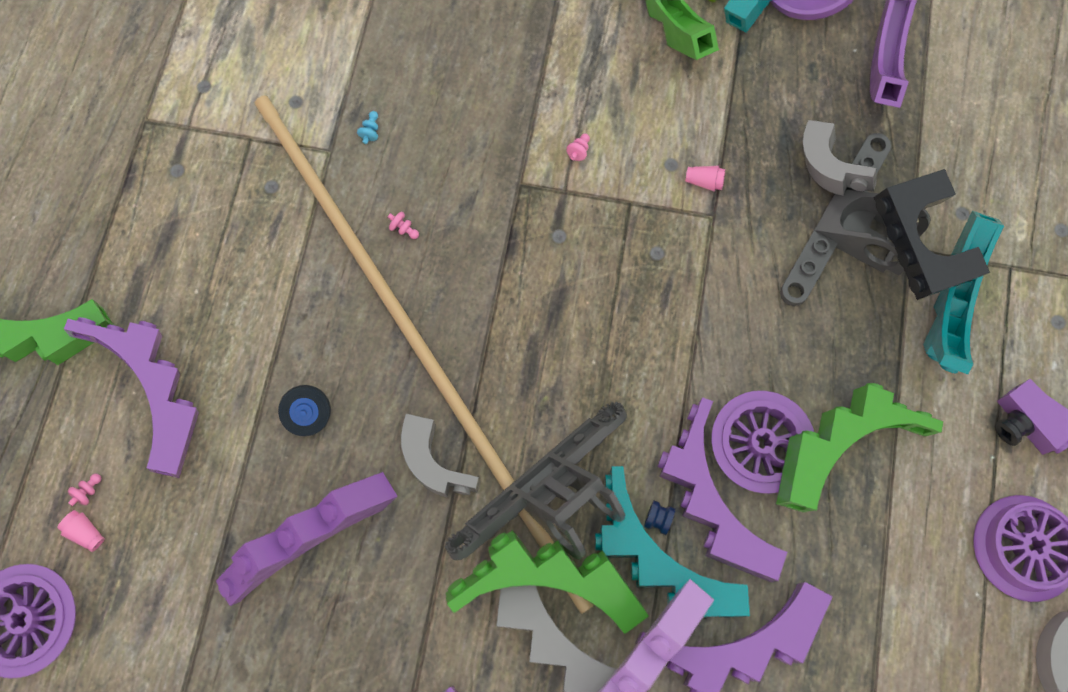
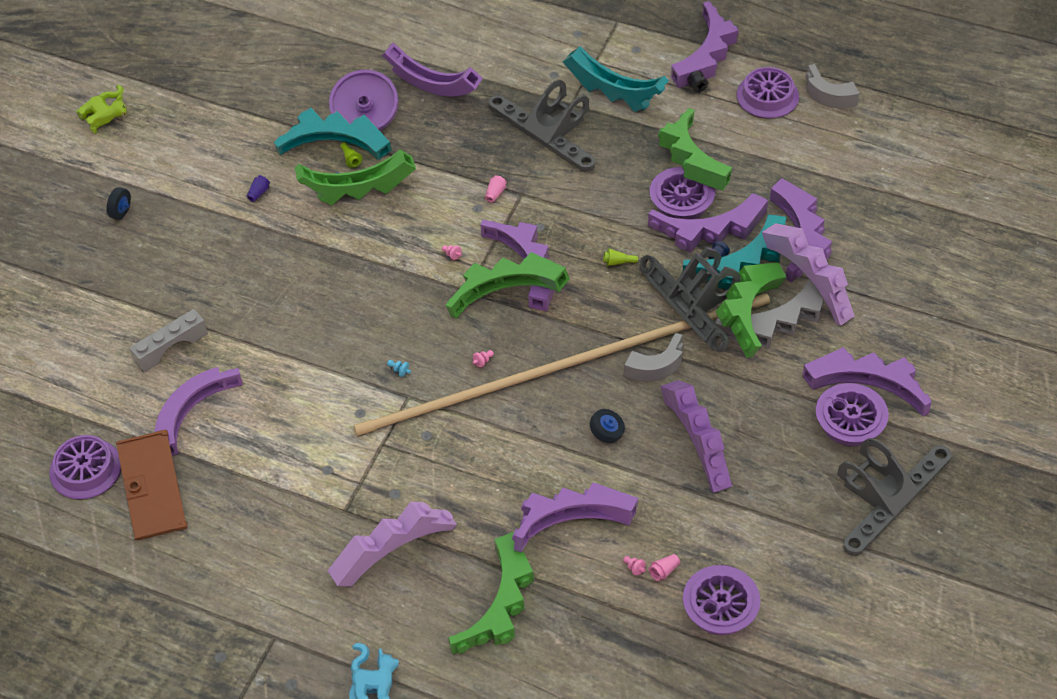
camera: 75 degrees left, 20 degrees down
(84, 184) = (387, 536): none -> lavender arch
(524, 193) = (482, 281): none -> bright green arch
(558, 273) = (523, 241): none -> medium lavender arch
(616, 367) = (615, 257): none -> lime cone
(826, 168) = (505, 127): light grey arch -> none
(924, 269) = (558, 85): black arch -> none

